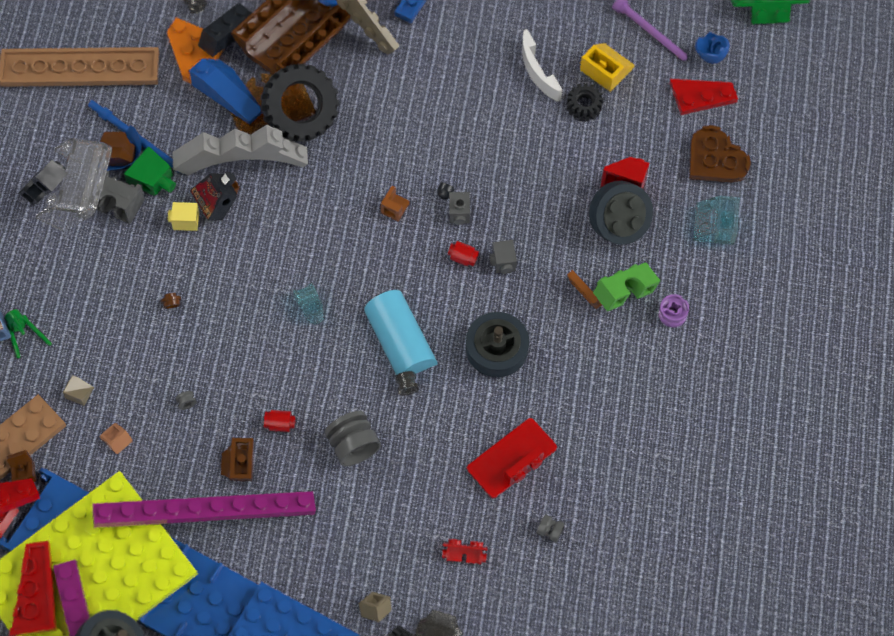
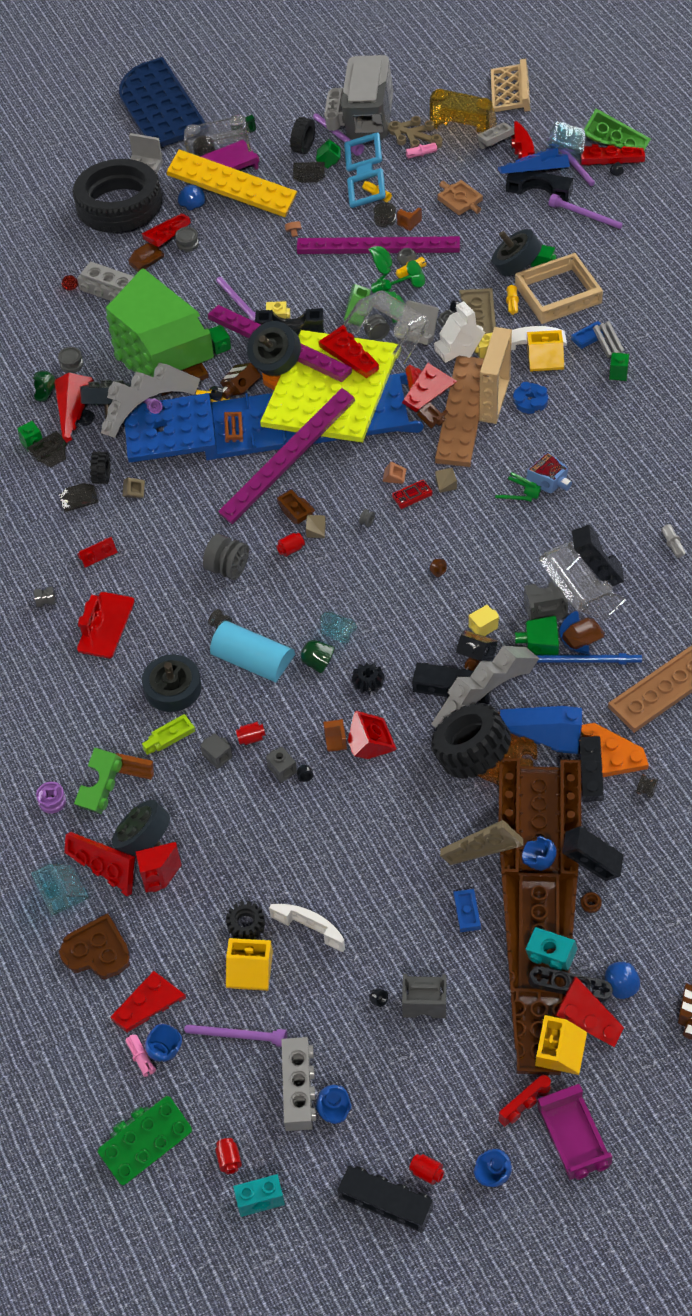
camera: 150 degrees right, 10 degrees down
(120, 401) = (412, 494): none -> tile
(213, 615) = (233, 437): none -> dark orange tile
(239, 426) = (315, 526): none -> dark tan slope
(262, 187) = (438, 680): none -> black brick
(325, 235) = (368, 678): none -> black gear
(348, 286) = (316, 655): none -> dark green hair
(368, 179) = (369, 736): none -> red slope
(533, 301) = (168, 734): none -> lime hinge
(668, 221) = (103, 860): none -> red wing
(733, 57) = (140, 1055): none -> bright pink axle

